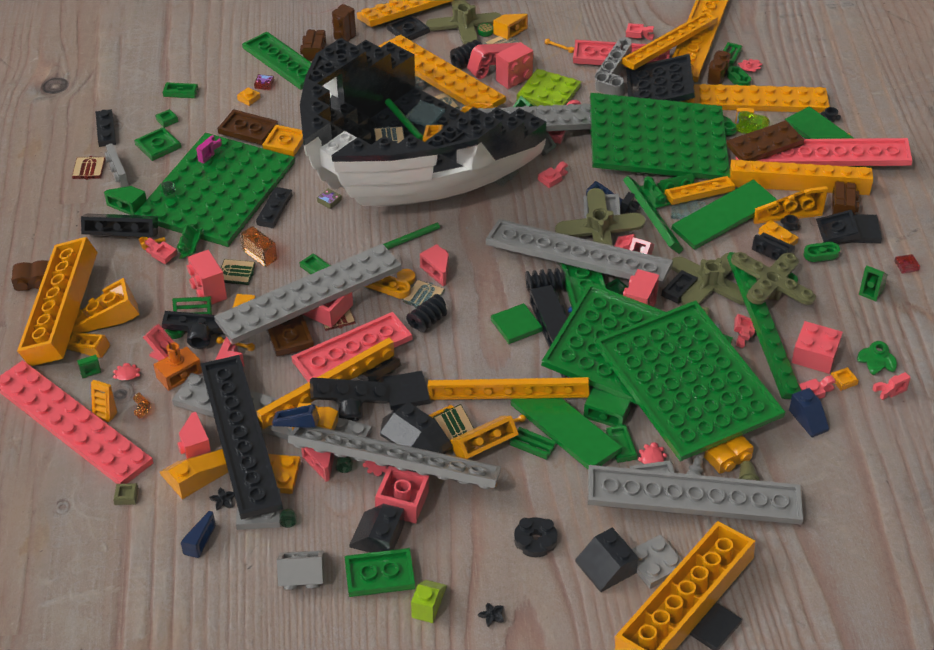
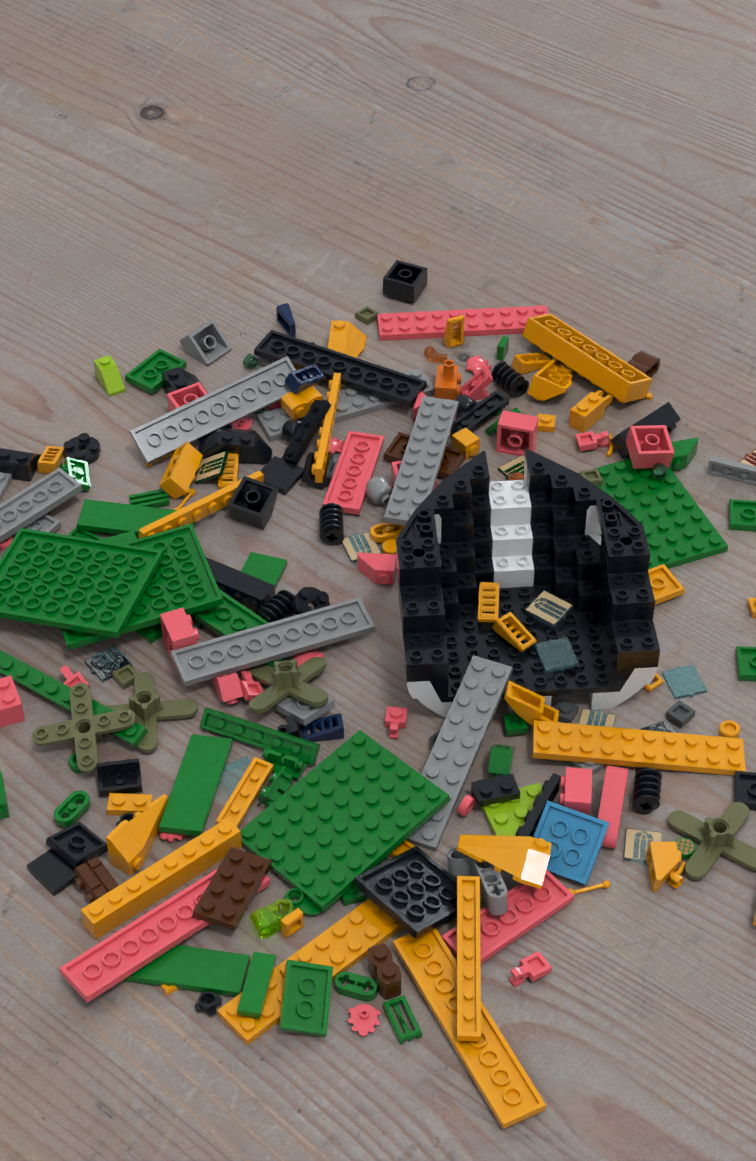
camera: 135 degrees right, 0 degrees up
(53, 488) = (405, 281): none -> black brick
(131, 267) = (589, 411): none -> light orange hinge
(132, 334) = (509, 379): none -> black piece
(151, 195) = (649, 446): none -> coral brick
(162, 290) = (546, 422): none -> light orange plate
(189, 240) = (576, 454): green hinge -> none
(193, 438) = (371, 353): coral slope -> none
(206, 149) = (686, 518): dark pink plate -> none
(212, 218) = (593, 476): none -> olive tile
(247, 126) = (706, 574): reddish brown plate -> none
(360, 312) = (378, 490): none -> light grey head
(403, 119) = (563, 632): green bar -> none
(468, 359) = (253, 502): none -> black slope
(492, 614) = (63, 398): black plant -> none
(520, 263) = (309, 595): none -> black plate
(544, 70) = (532, 818): none -> black plate
(549, 53) = (574, 841): none -> dark azure plate
(549, 97) = (495, 790): none -> black bracket
(571, 508) = (77, 470): none -> bracket
(581, 535) = (50, 459): none -> light orange slope
(592, 56) = (517, 855): none -> light orange wedge
(678, 286) = (165, 683): black plate -> none
(777, 78) = (306, 998): none -> green plate
(798, 97) = (256, 985): none -> green tile

